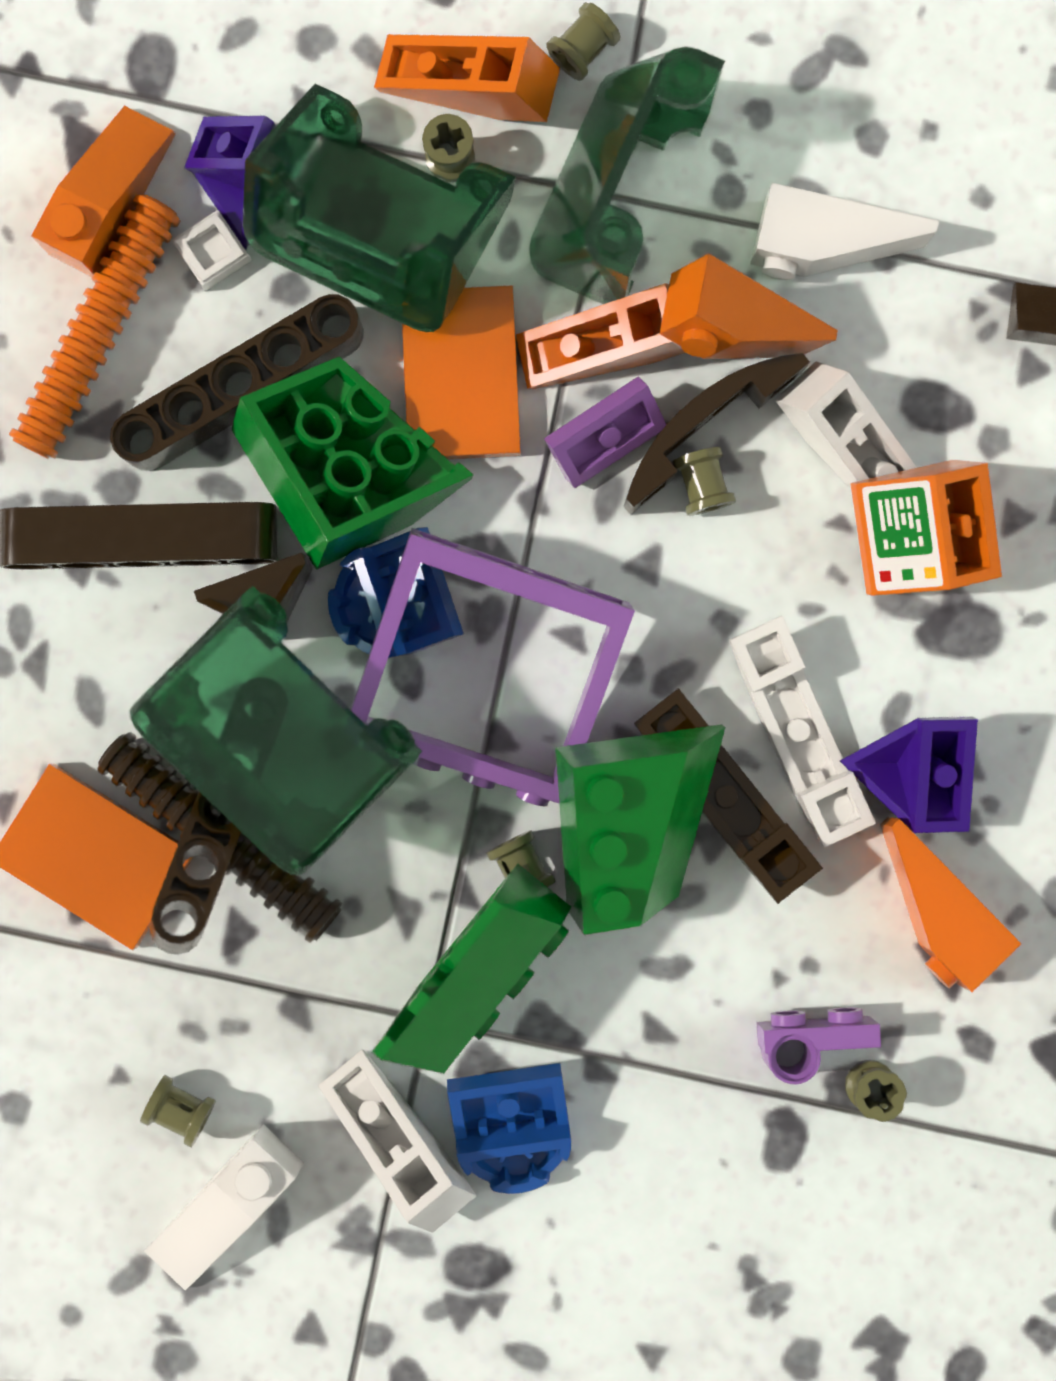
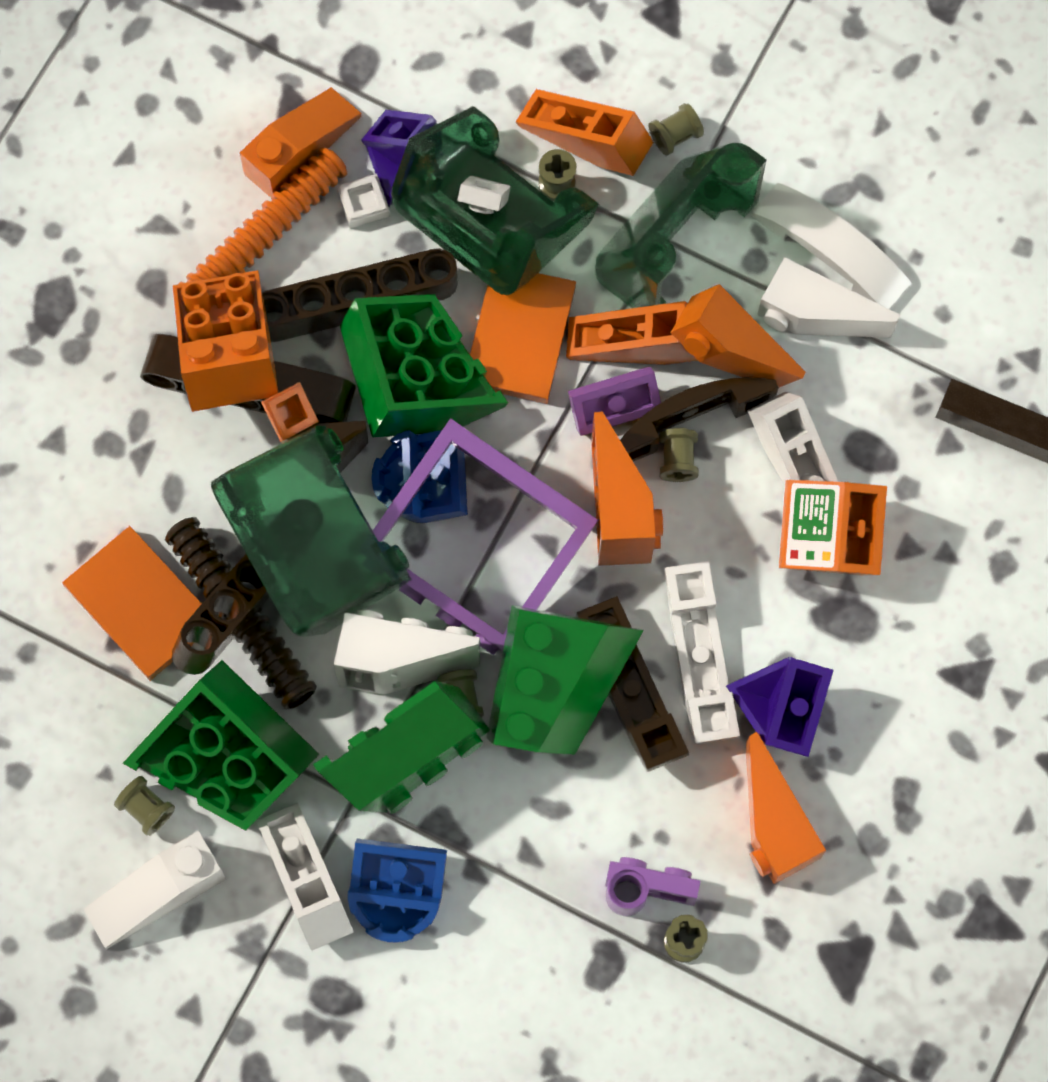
camera: 10 degrees right, 15 degrees down
(89, 501) = (224, 341): none -> orange slope
(202, 572) = (290, 411): none -> orange slope
(256, 1016) = (225, 749): none -> green wedge
(363, 203) = (483, 195): none -> white plate
(412, 853) = (393, 655): none -> white slope
(651, 566) = (624, 505): none -> orange slope
(823, 141) = (833, 242): none -> white slope

